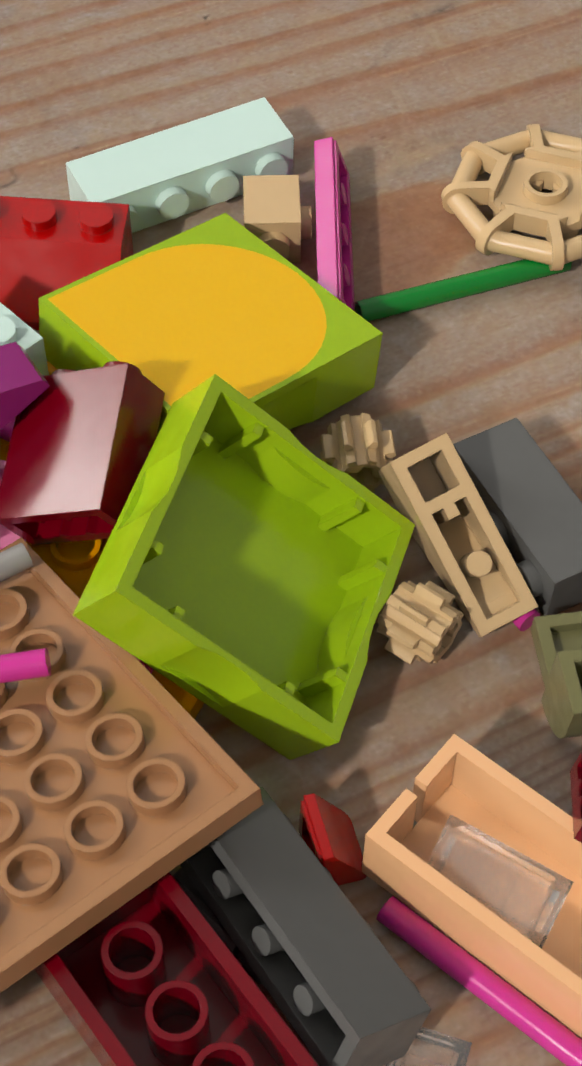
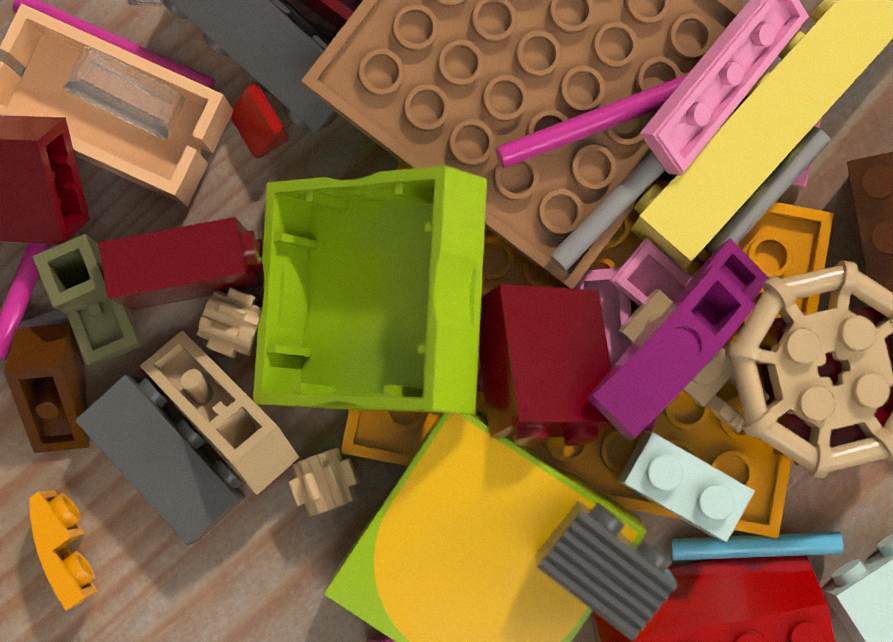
camera: 165 degrees right, 30 degrees up
(91, 265) = (606, 568): none -> dark grey brick
(461, 675) = (181, 263): none -> dark red brick

